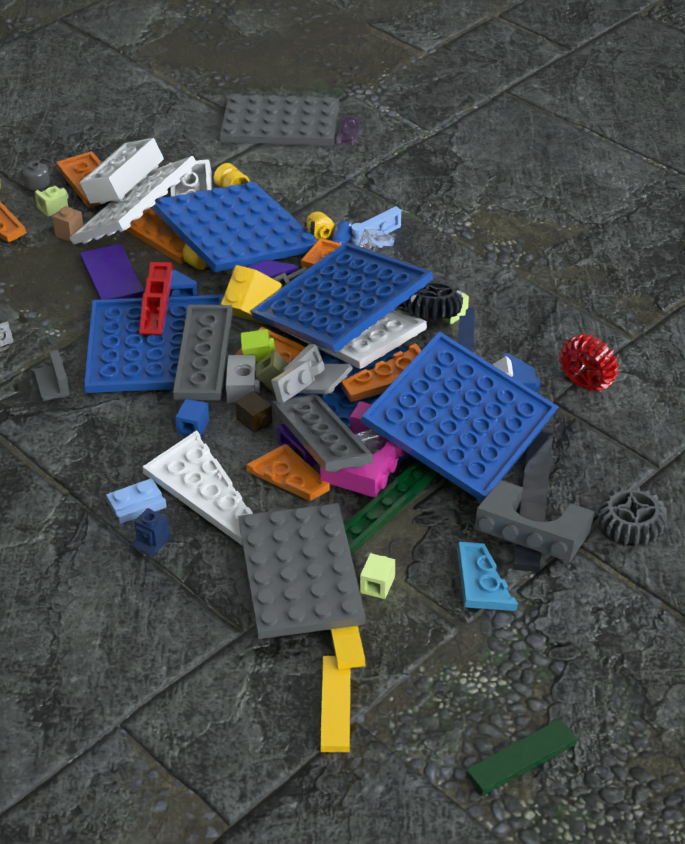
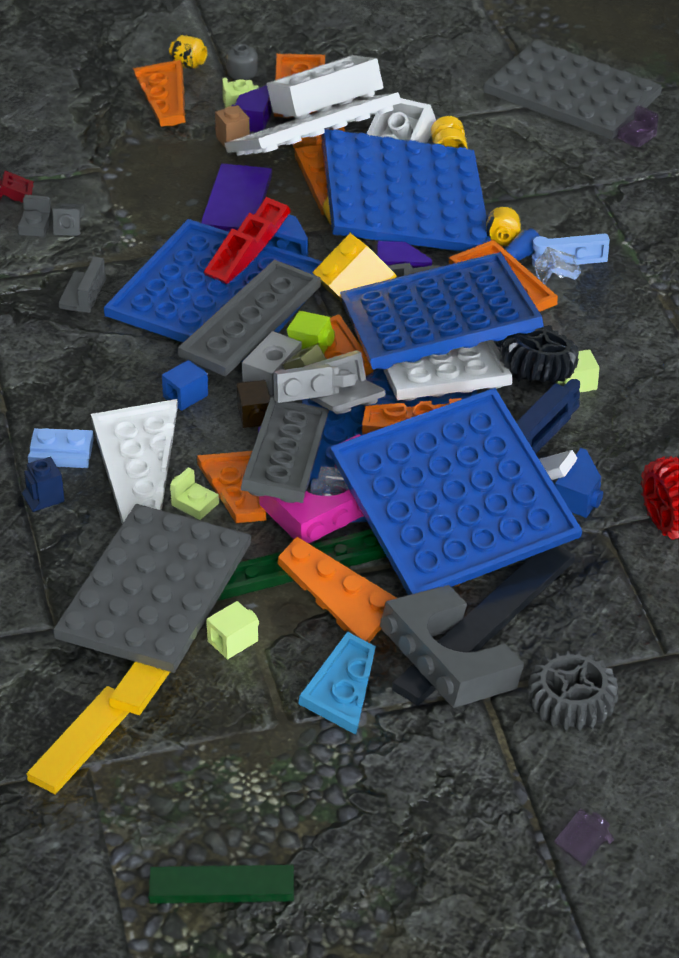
camera: 30 degrees right, 0 degrees up
(73, 199) = (257, 107): none -> dark purple slope
(264, 496) = (192, 497): none -> yellowish green bracket
(441, 518) = (344, 593): none -> orange wing

